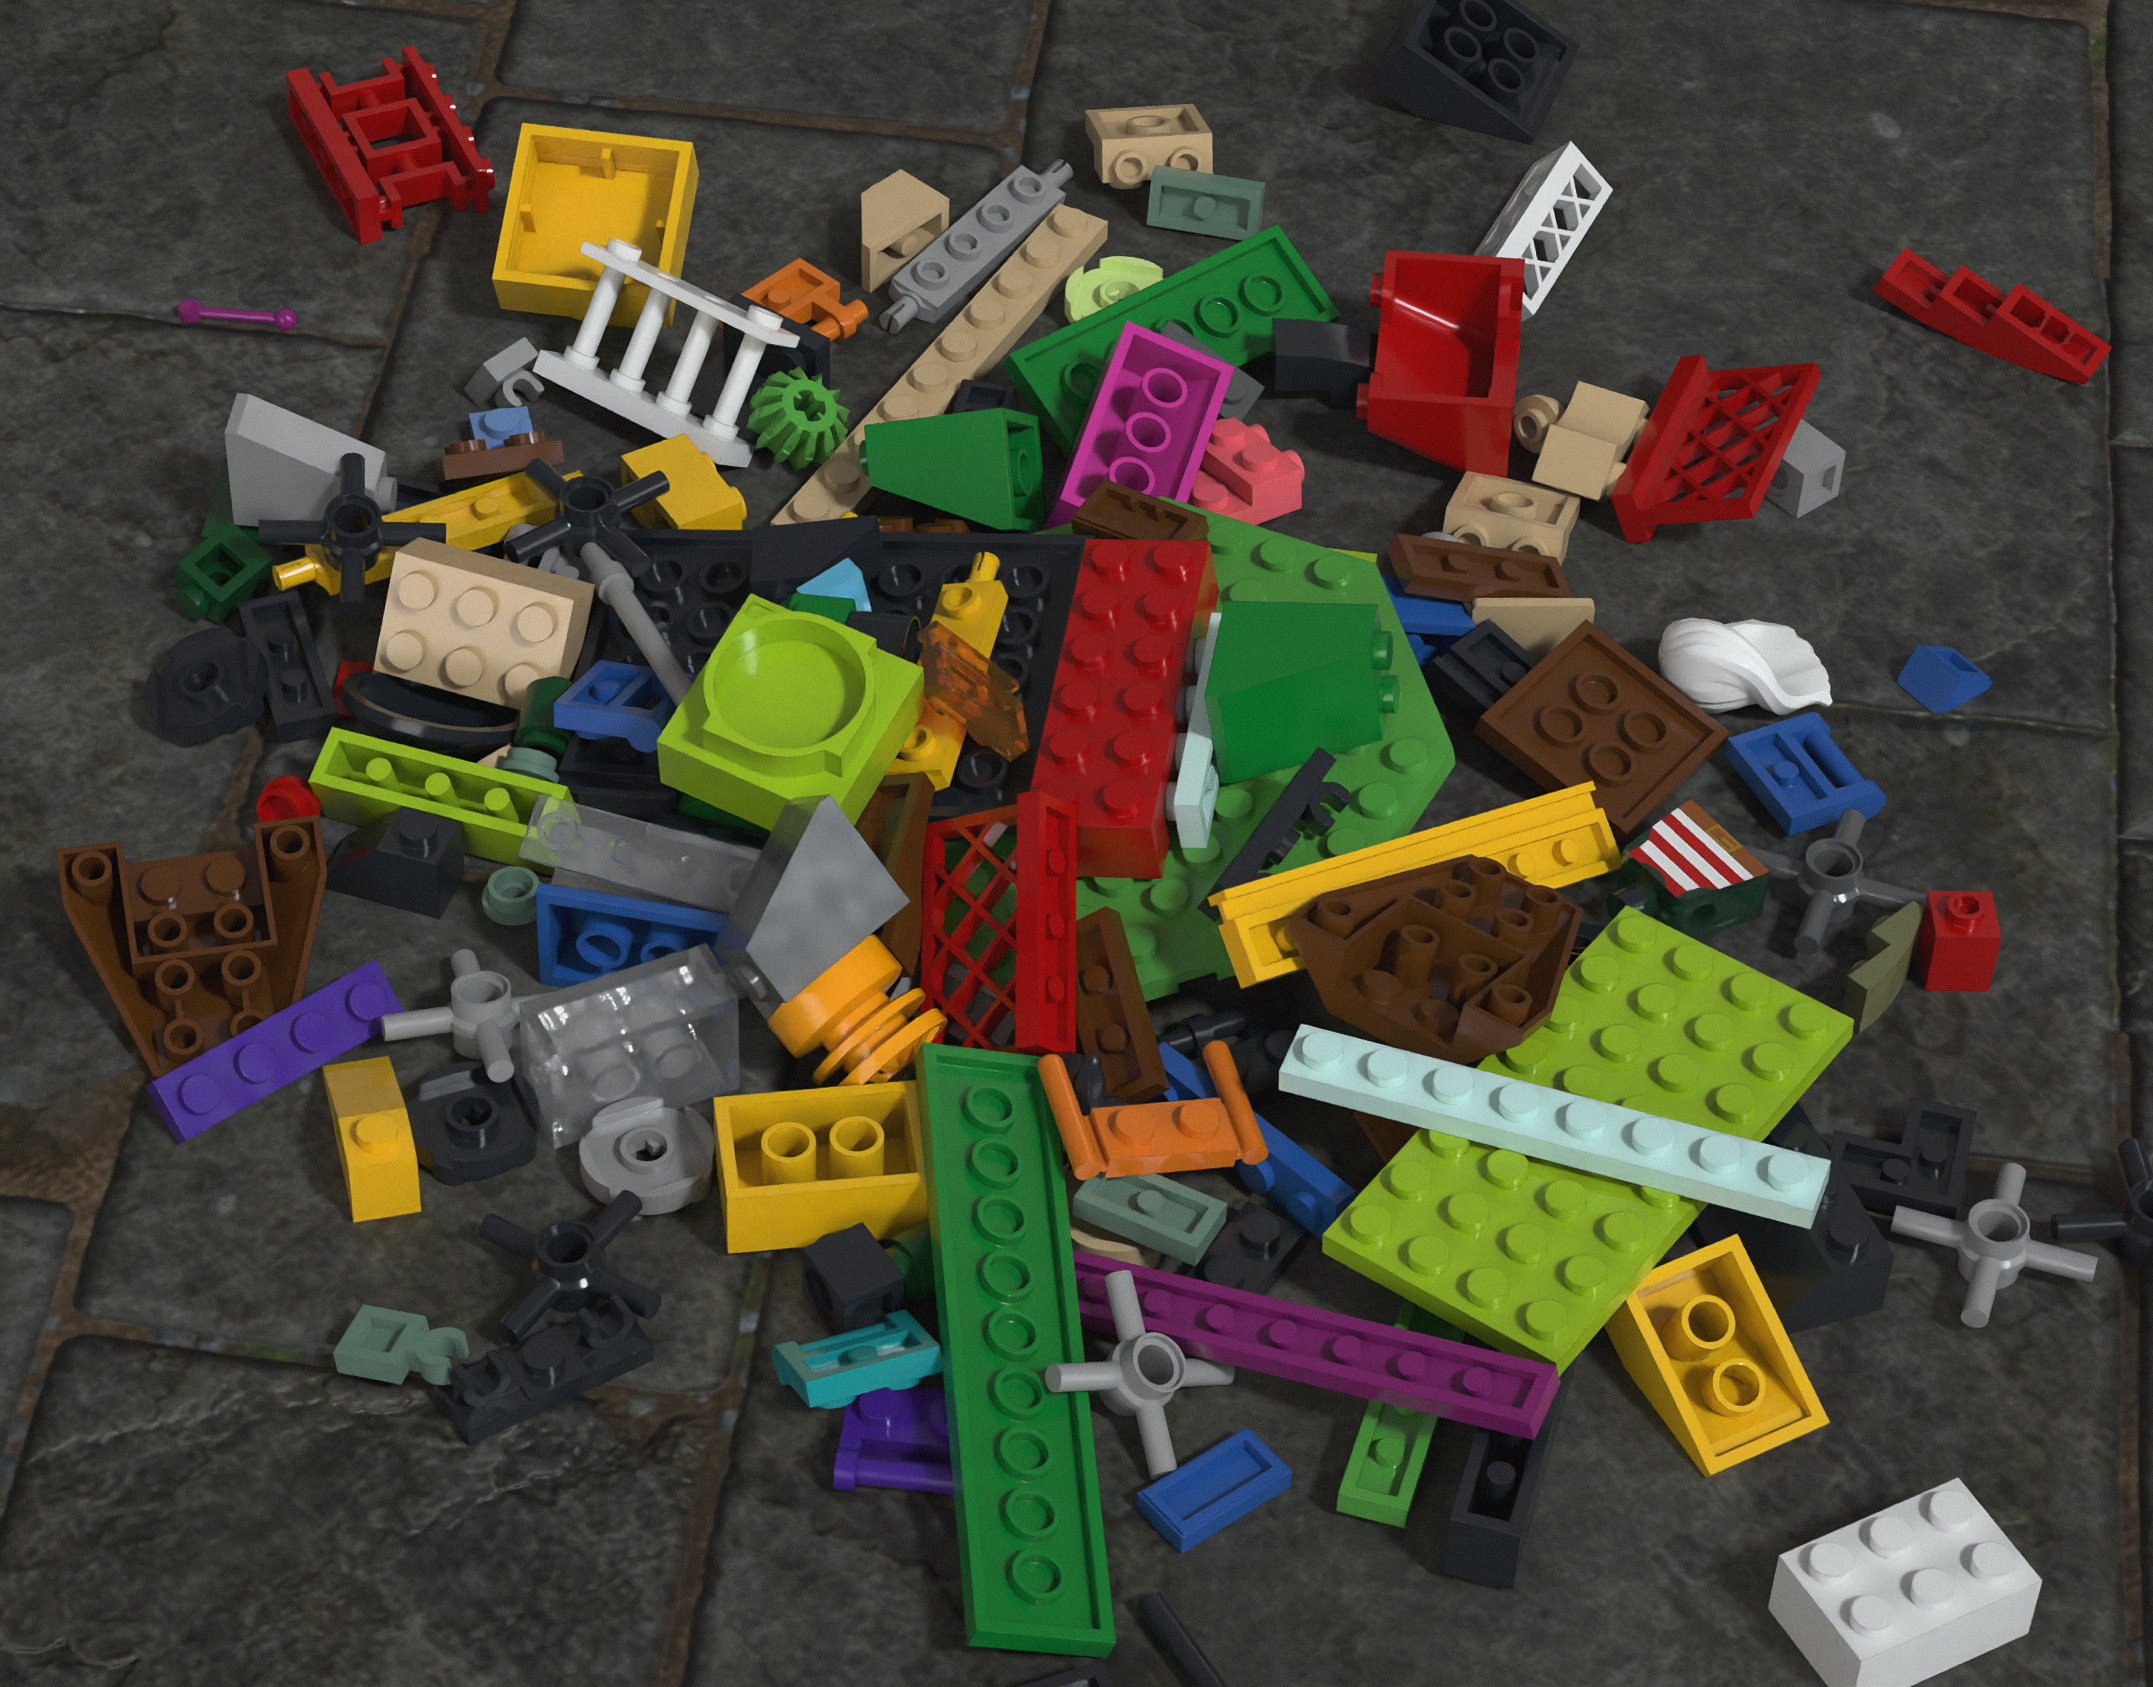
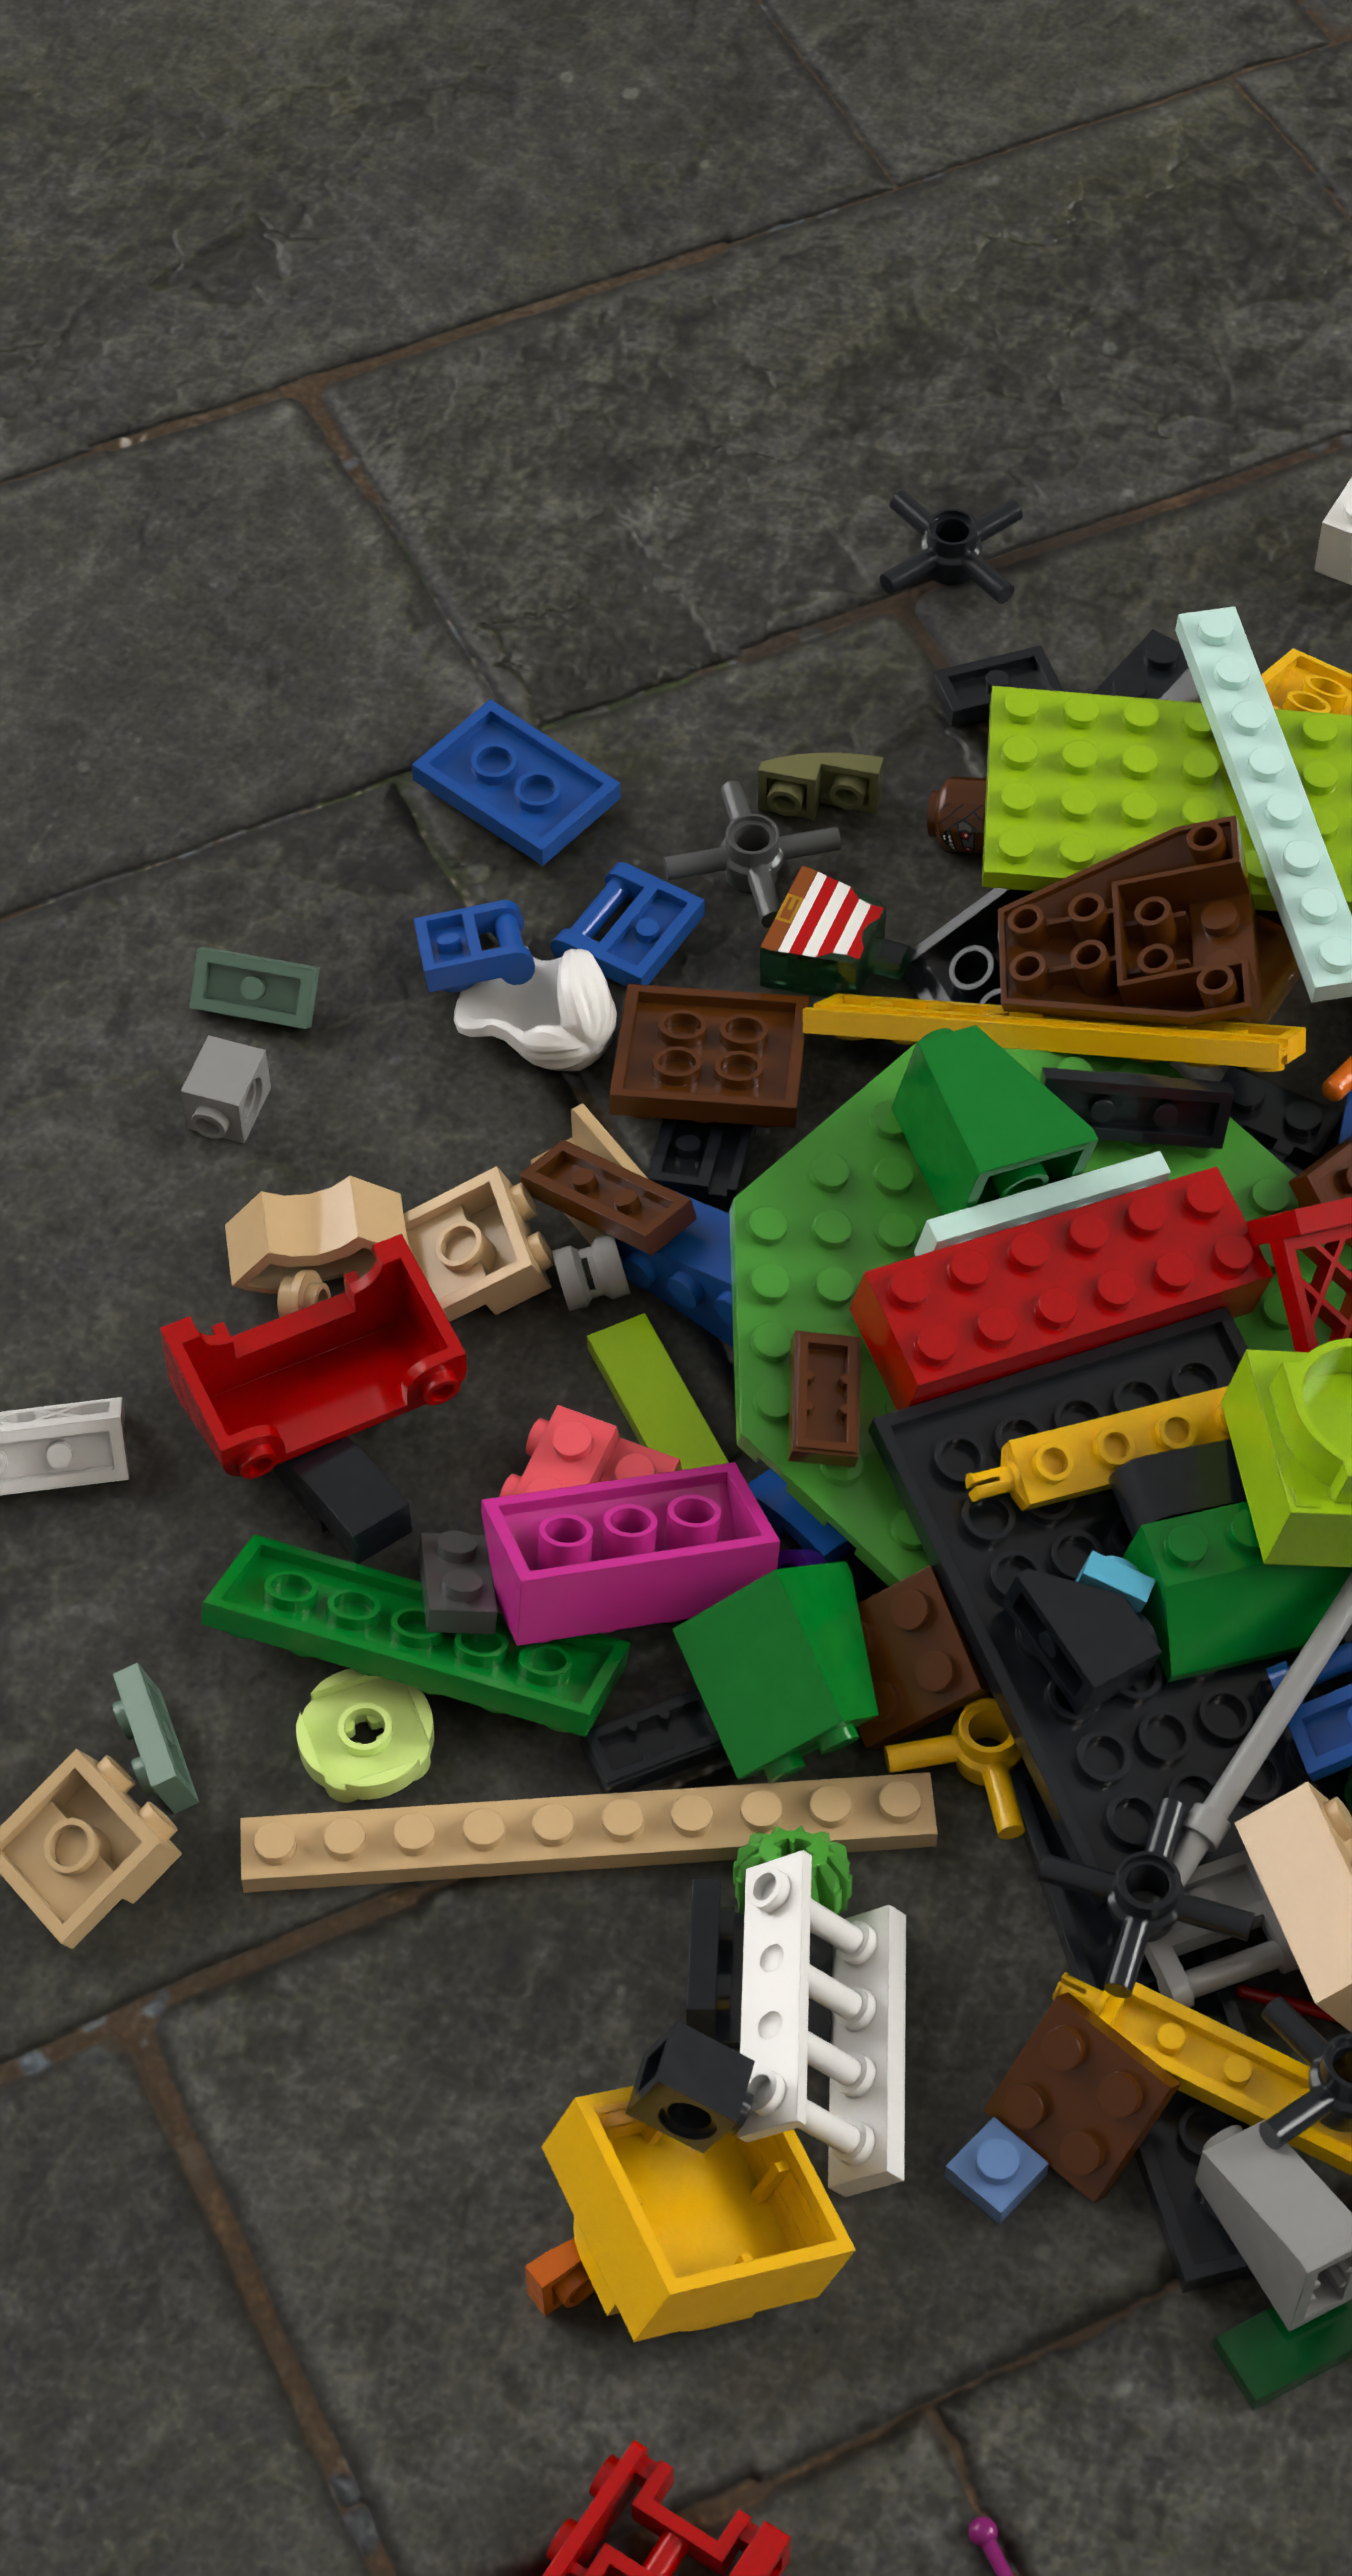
camera: 120 degrees left, 10 degrees up
(503, 374) = (922, 2216): light grey tile -> none
(650, 201) = (692, 2088): none -> black brick
(696, 493) = (974, 1921): yellow brick -> none
(808, 294) = (598, 2031): orange plate -> none
(897, 224) = (405, 1999): tan slope -> none
(972, 691) = (1174, 1368): clear orange plate -> none
(974, 245) = (356, 1923): light grey plate -> none
(1676, 438) = (228, 1190): red fence -> none
(1849, 640) = (453, 950): none -> blue plate
(1910, 520) = (254, 987): none -> sand green plate
(1942, 678) = (419, 893): blue slope -> none
(1958, 941) = (753, 736): red brick -> none
(1993, 1244) = (1053, 618): light grey bar -> none
(2039, 782) = (516, 782): none -> blue plate

